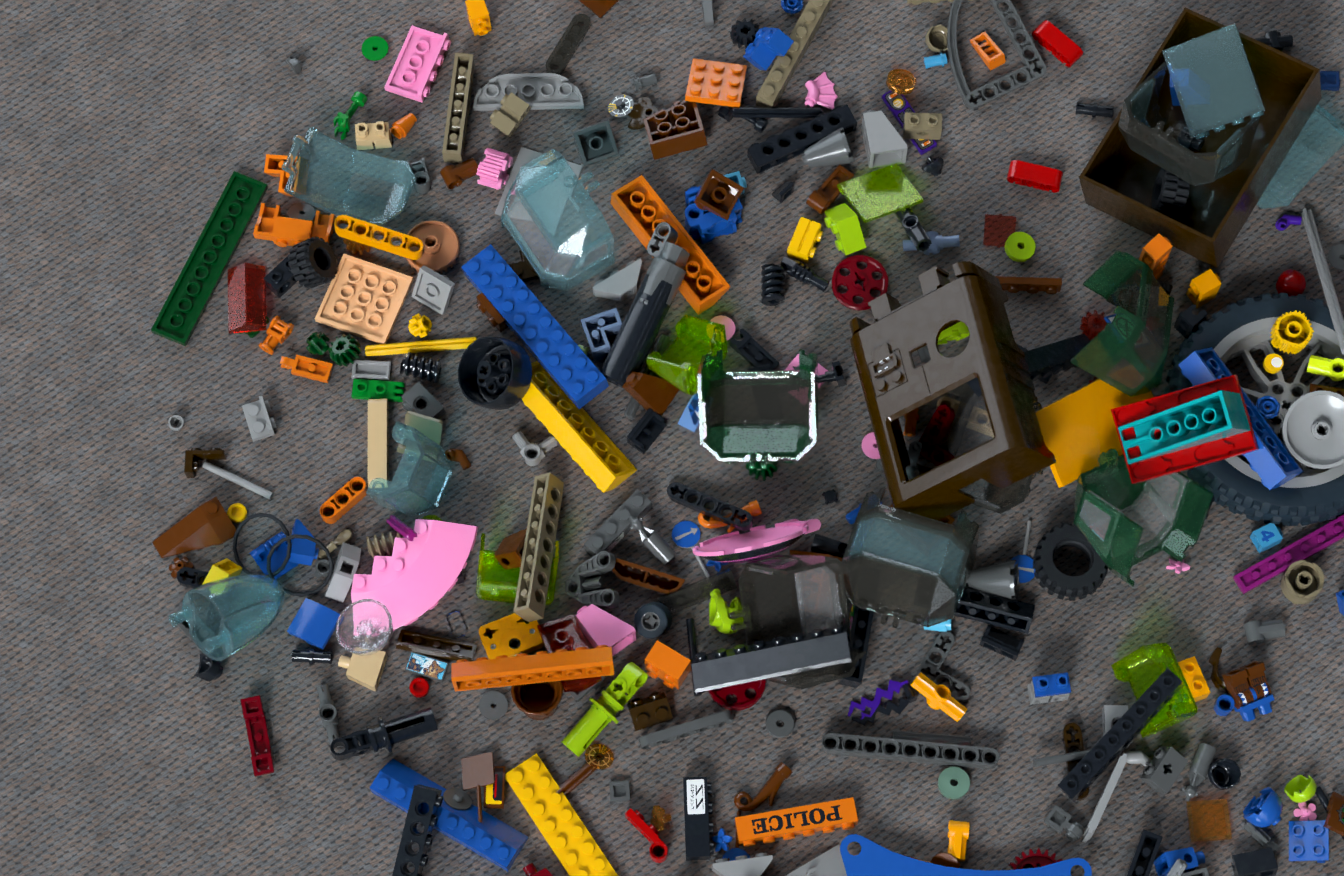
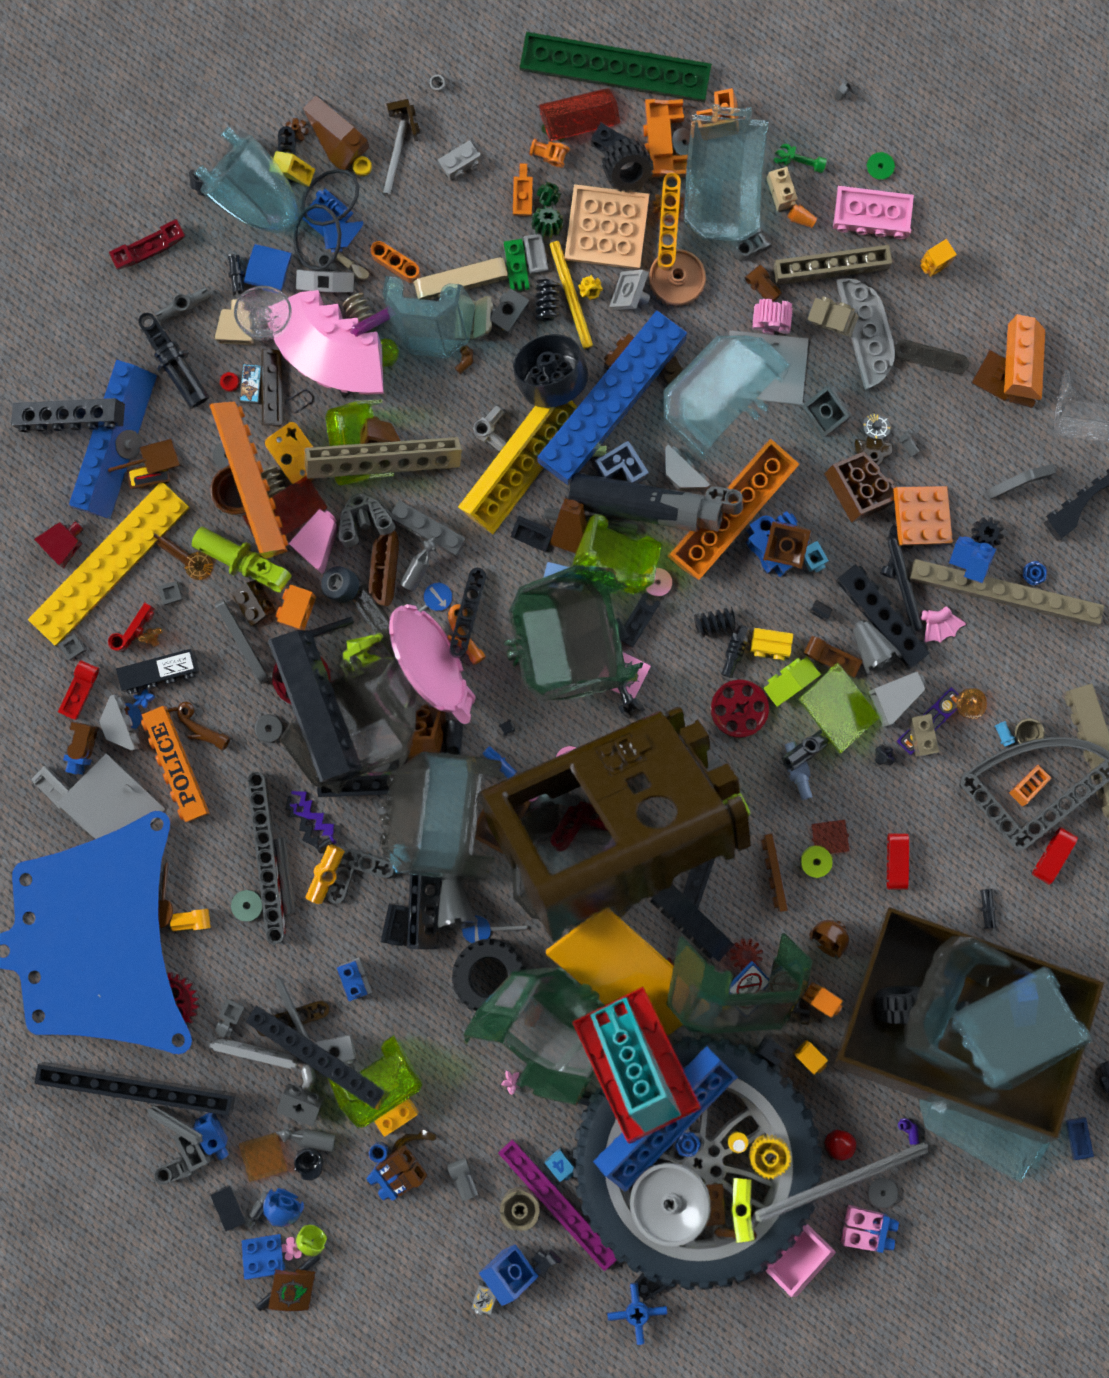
camera: 75 degrees right, 15 degrees up
(1096, 244) = (831, 936): none -> reddish brown cylinder

